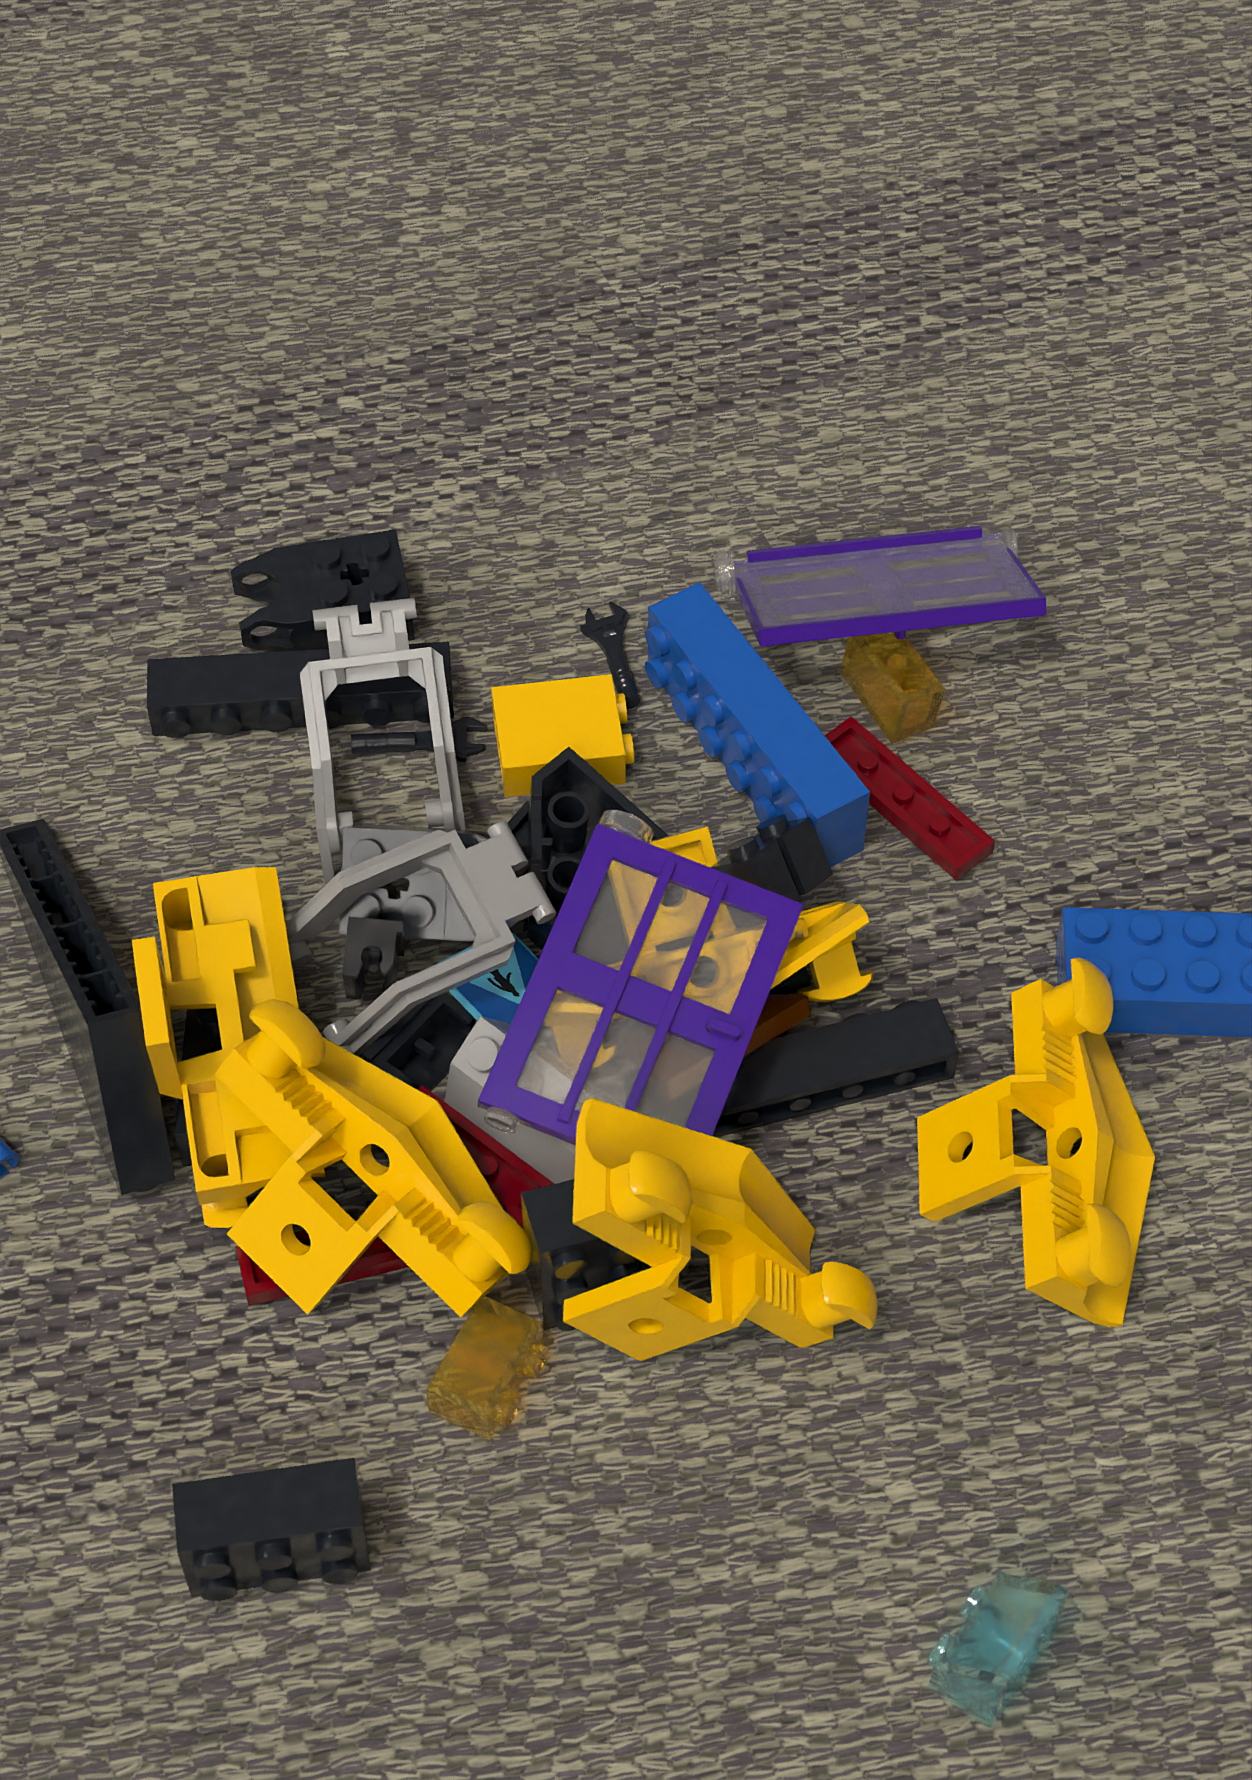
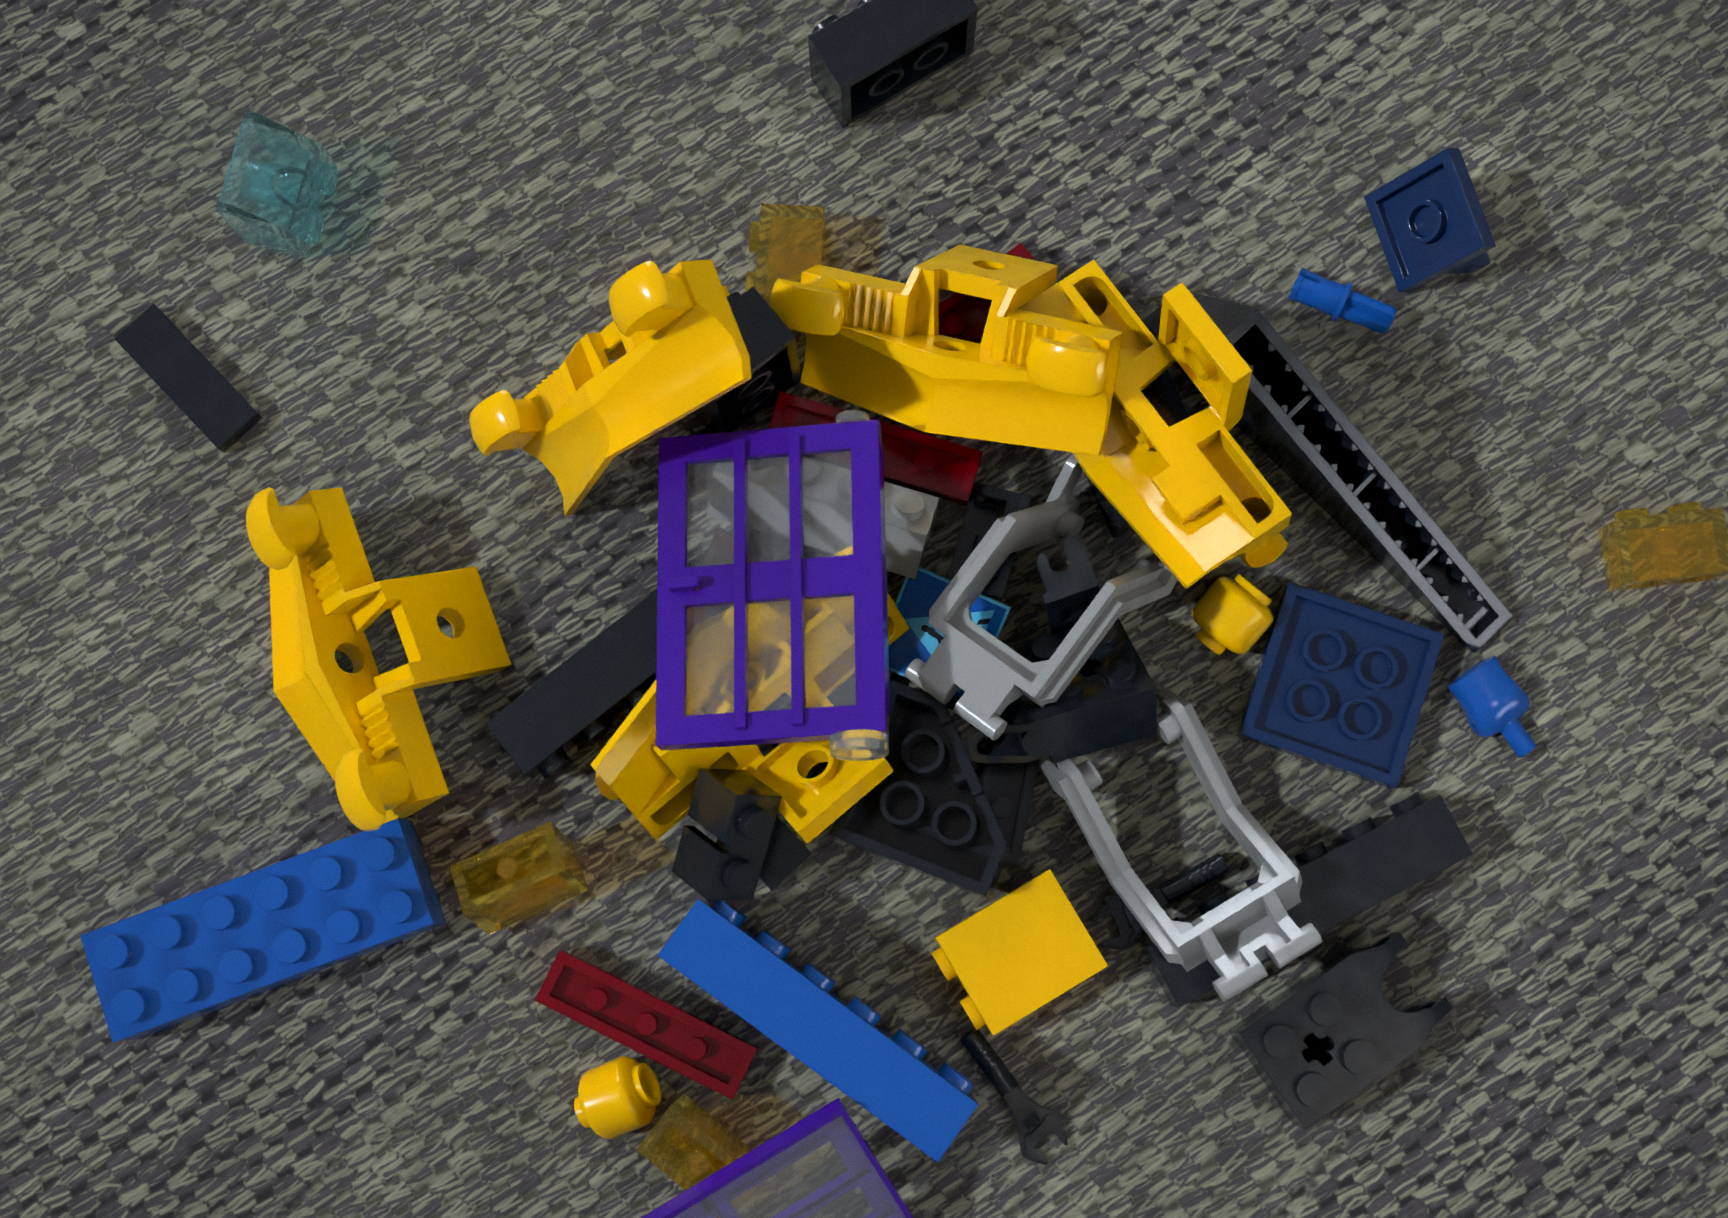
camera: 160 degrees right, 25 degrees up
(53, 776) = (1494, 704): none -> blue piece
(173, 822) = (1340, 685): none -> dark blue plate
(949, 751) = (617, 1097): none -> yellow head
(973, 926) = (518, 878): none -> clear yellow brick
(1161, 1509) = (188, 378): none -> black tile

